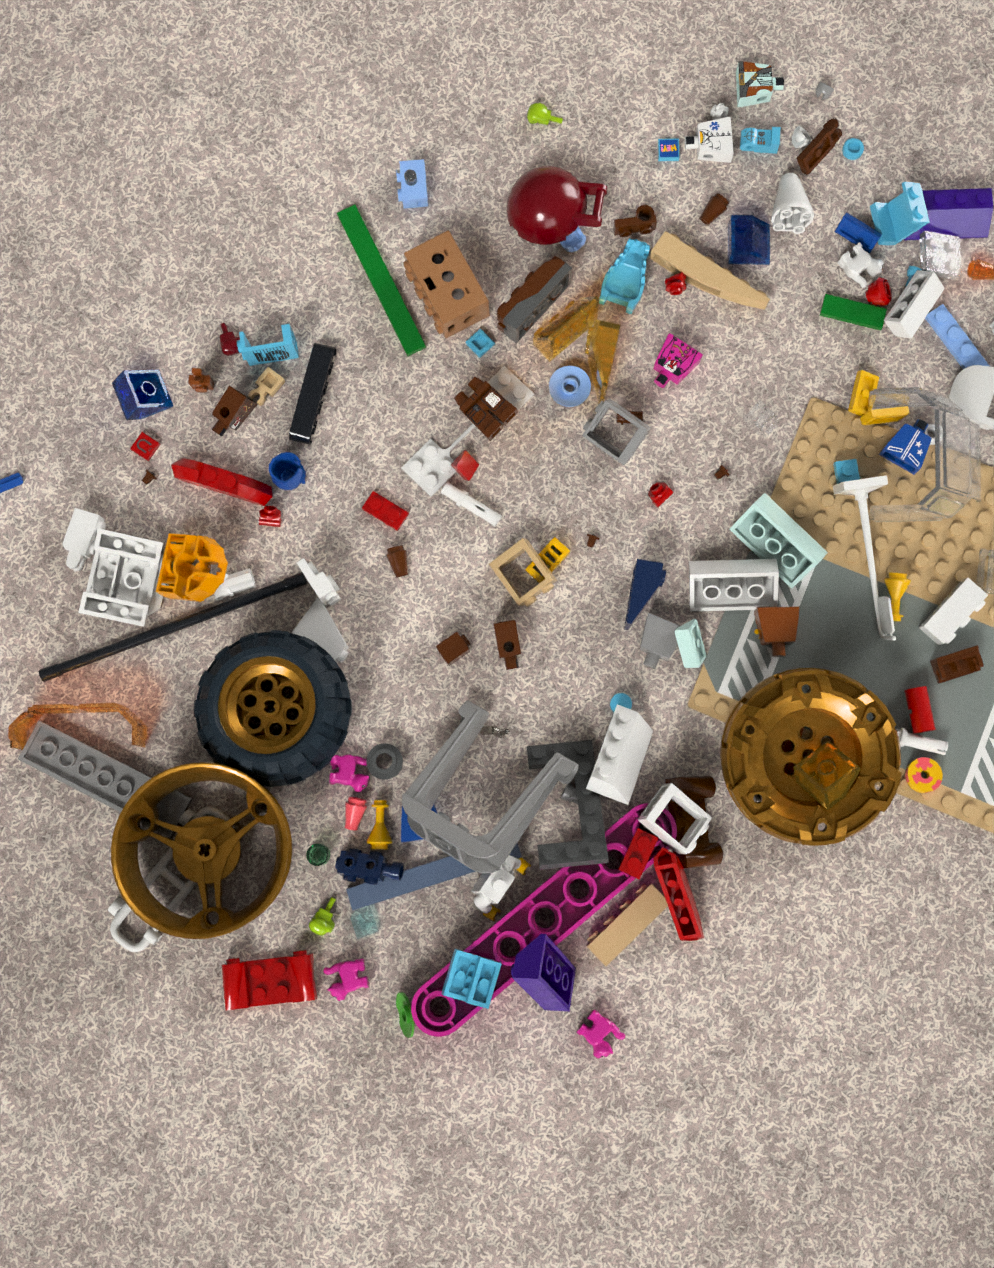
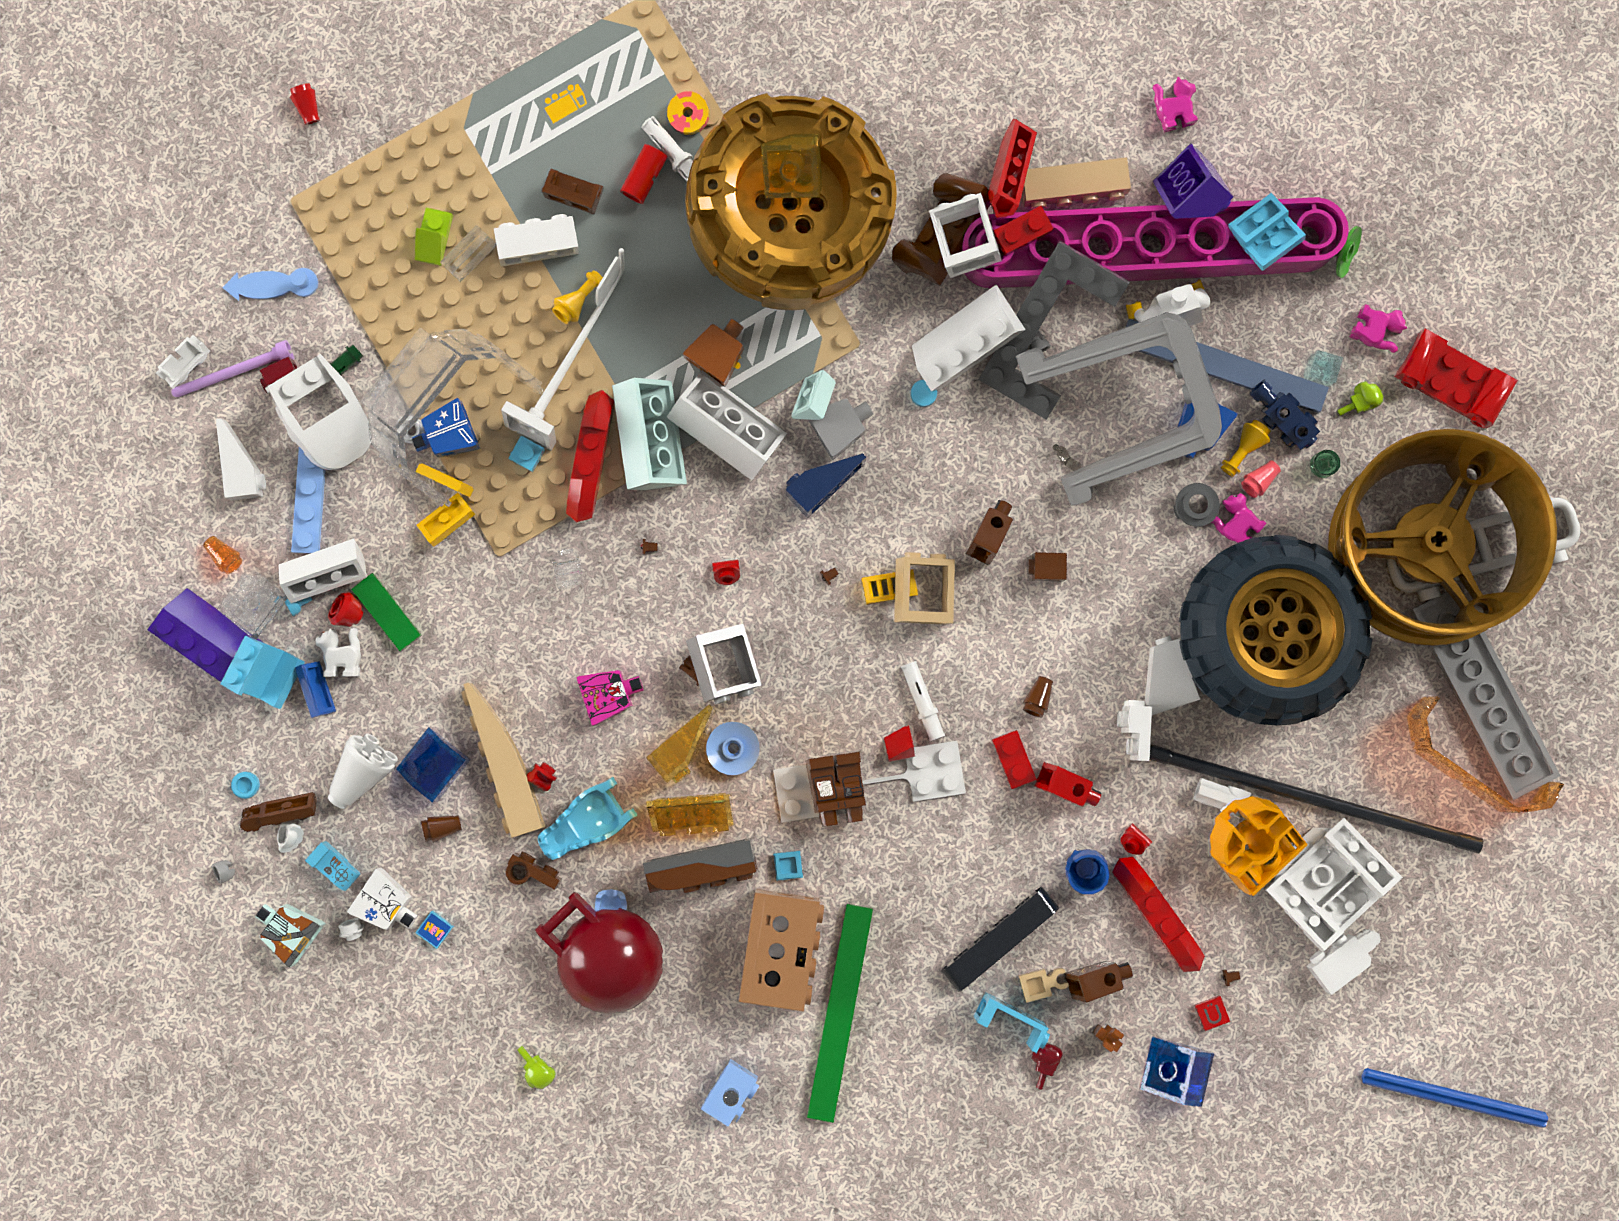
camera: 150 degrees left, 5 degrees up
(339, 515) = (1061, 783): none -> red torso
(805, 498) = (589, 456): none -> red brick

